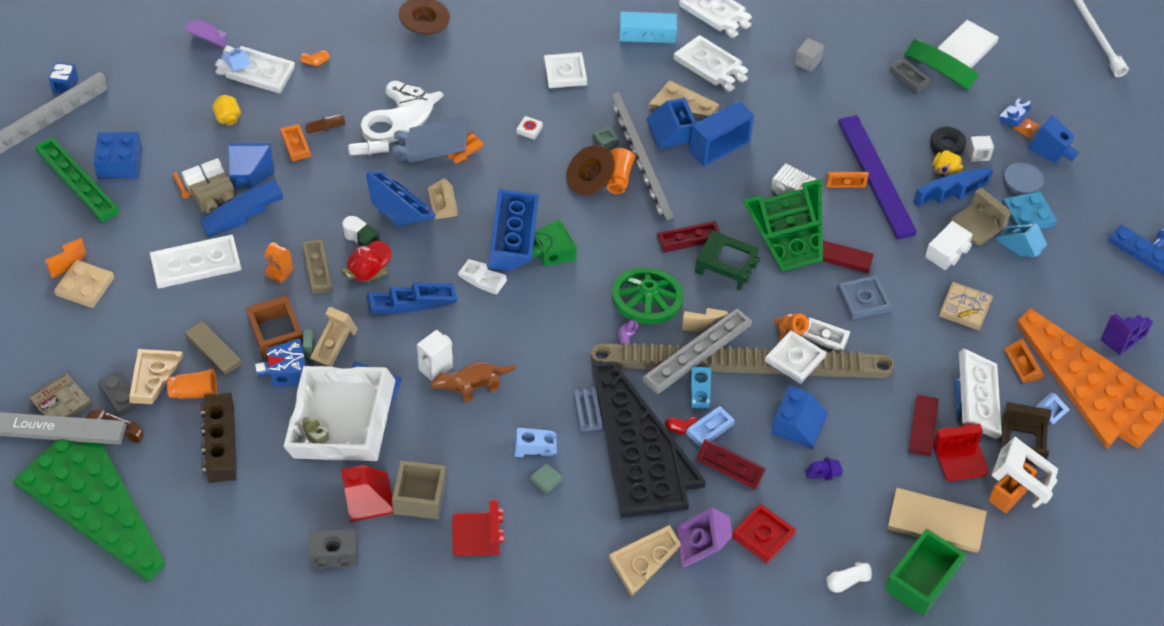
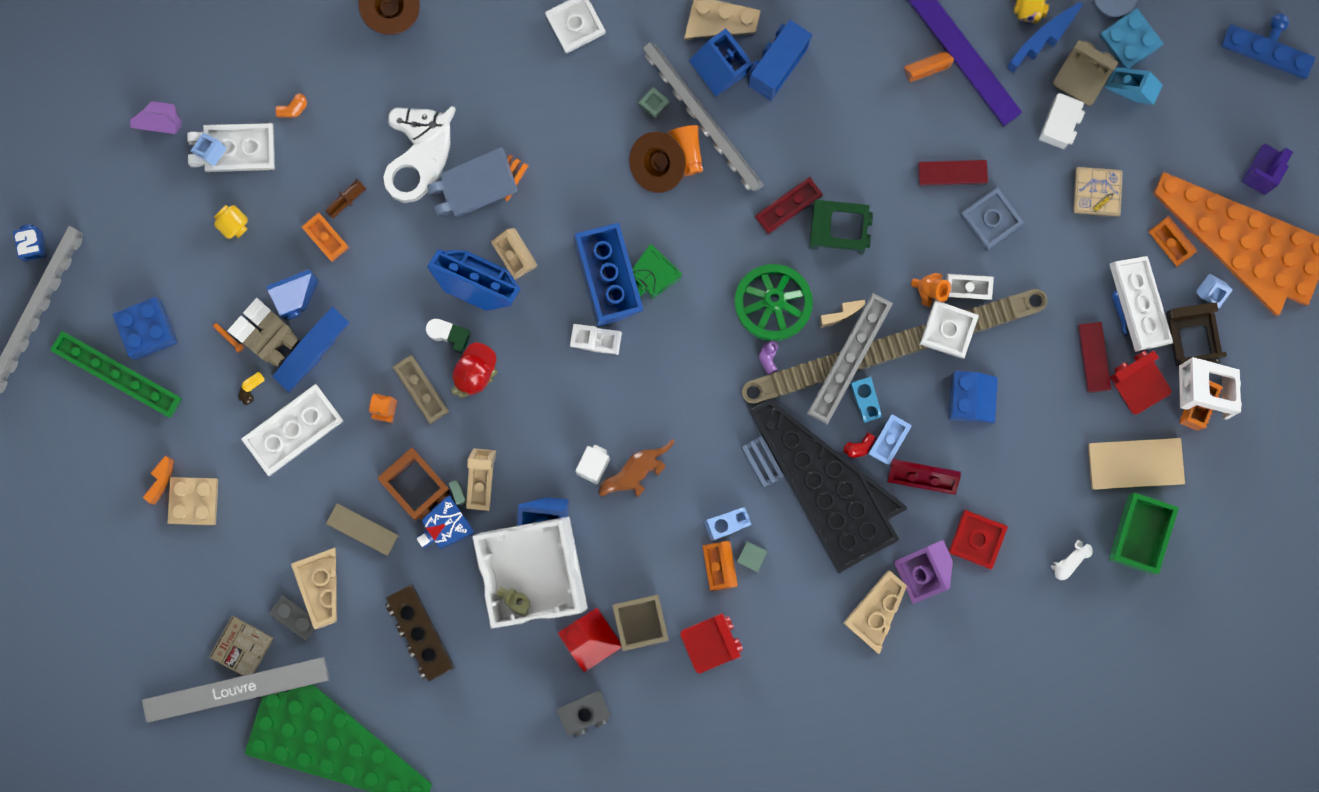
camera: 20 degrees left, 30 degrees up
(133, 431) = (332, 656): reddish brown bar -> none
(175, 219) = (247, 386): none -> arm
(192, 385) = (366, 585): orange plant -> none
(368, 147) = (407, 214): white axle -> none
(417, 298) = (536, 395): blue slope -> none
(514, 476) = (720, 565): none -> orange slope
(529, 127) = (567, 119): white tile -> none
(789, 180) = (877, 98): white brick -> none
(791, 225) = (892, 158): green wedge -> none
(824, 469) = (1017, 444): dark purple piece -> none

